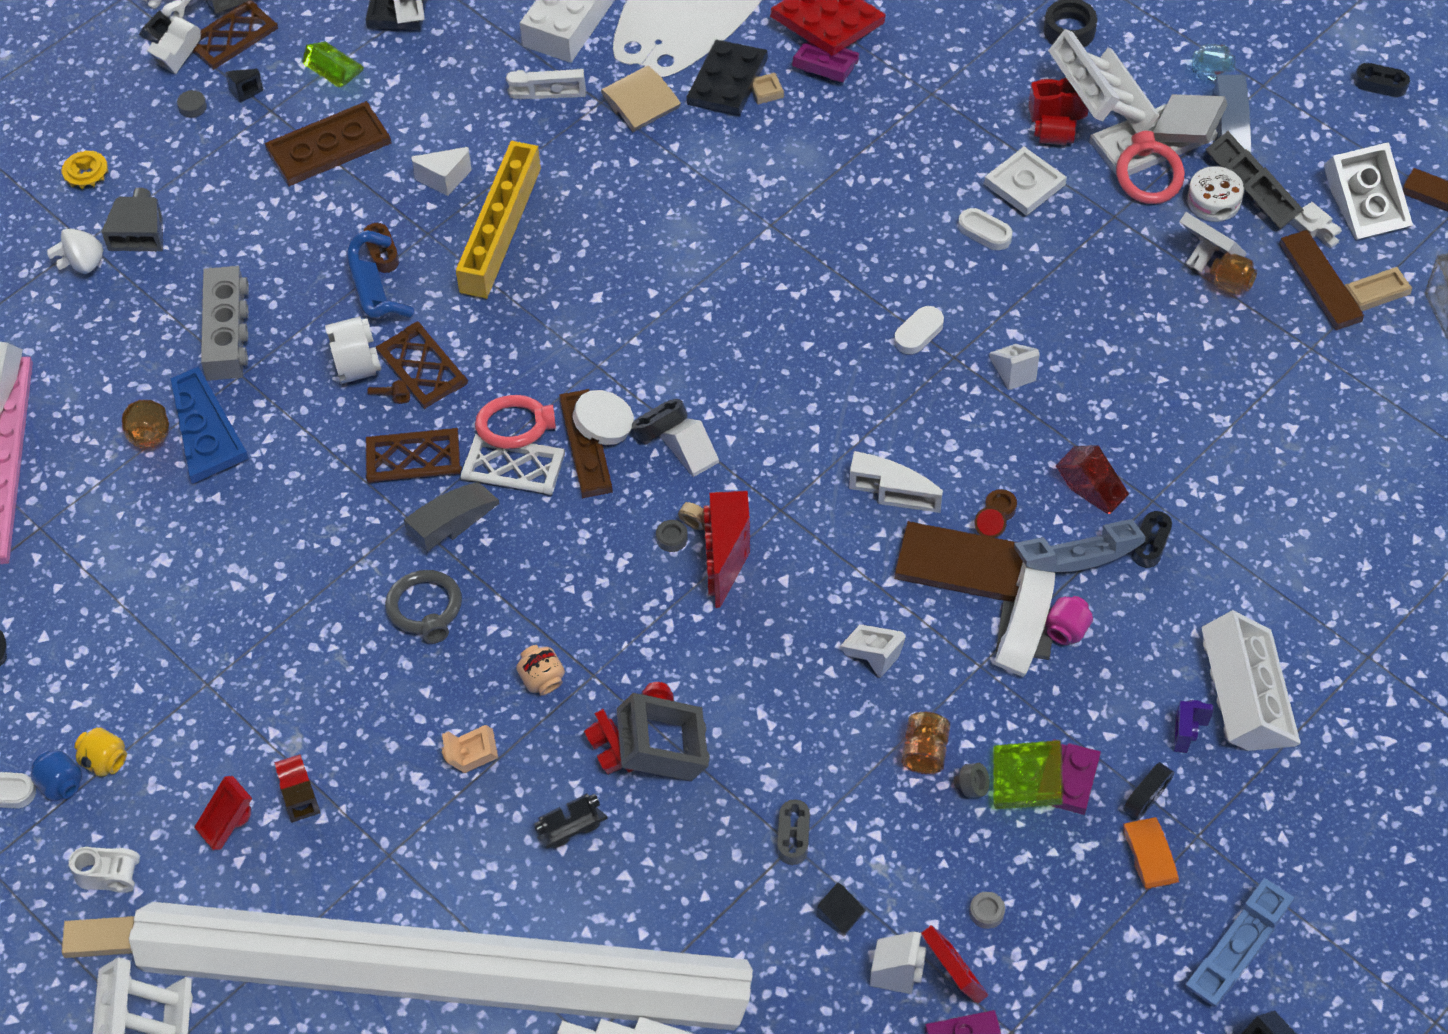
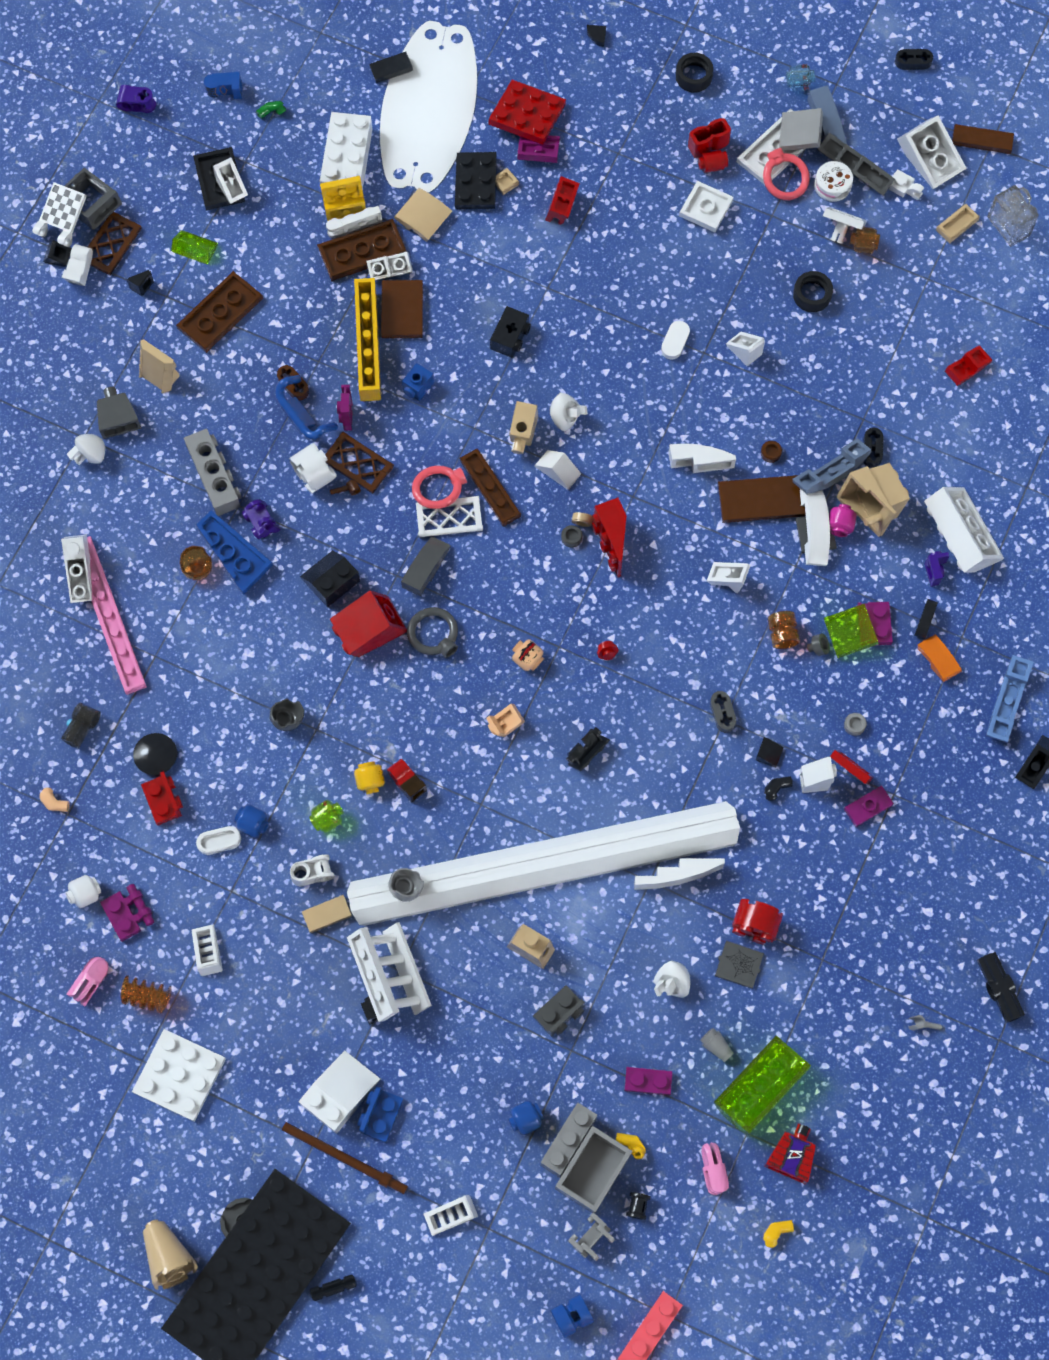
camera: 20 degrees left, 15 degrees up
(83, 161) = (53, 375): yellow gear -> none
(100, 752) = (272, 796): yellow head -> none
(160, 800) = (326, 816): none -> clear neon green head
(170, 650) = (286, 715): none -> dark grey hair
(191, 103) = (109, 307): dark grey tile -> none
(212, 180) = (157, 367): none -> tan slope
(218, 922) = (405, 884): none -> light grey hair
(225, 811) = (371, 812): red tile -> none
(246, 764) = (369, 777): none -> yellow head
(256, 390) = (260, 518): none -> dark purple piece
(317, 496) = (331, 577): none -> black slope
(338, 564) = (367, 624): none -> red slope
(397, 441) = (384, 514): reddish brown window -> none
(430, 289) = (344, 407): none -> magenta plate
(442, 169) = (310, 311): white slope -> none
(542, 46) = (342, 197): none -> yellow slope
(543, 287) = (417, 382): none -> blue brick
(544, 119) = (352, 251): none -> reddish brown tile
(564, 199) = (402, 309): none -> reddish brown tile
(569, 145) = (390, 266): none -> white slope
(599, 734) = (584, 683): red hips -> none
(603, 417) = (496, 466): white tile -> none
(635, 743) = (614, 691): dark grey window -> none
(659, 420) = (533, 457): black beam -> none
(661, 374) = (525, 420): none -> tan torso
(693, 260) = (509, 332): none -> black brick
(728, 374) = (565, 411): none -> white piece
(829, 123) = (562, 200): none -> red hinge
(830, 960) = (775, 785): none -> black arm
(985, 229) = (691, 250): white tile -> none
(990, 522) = (770, 466): red tile -> none
(1092, 477) = (823, 416): clear red slope -> none
(1103, 82) = (737, 119): white fence -> none
(1127, 596) = (875, 496): none -> tan piece
(1142, 302) = (817, 278): none -> black tyre
(1321, 280) = (920, 226): reddish brown tile -> none
(1337, 470) = (968, 365): none -> red slope

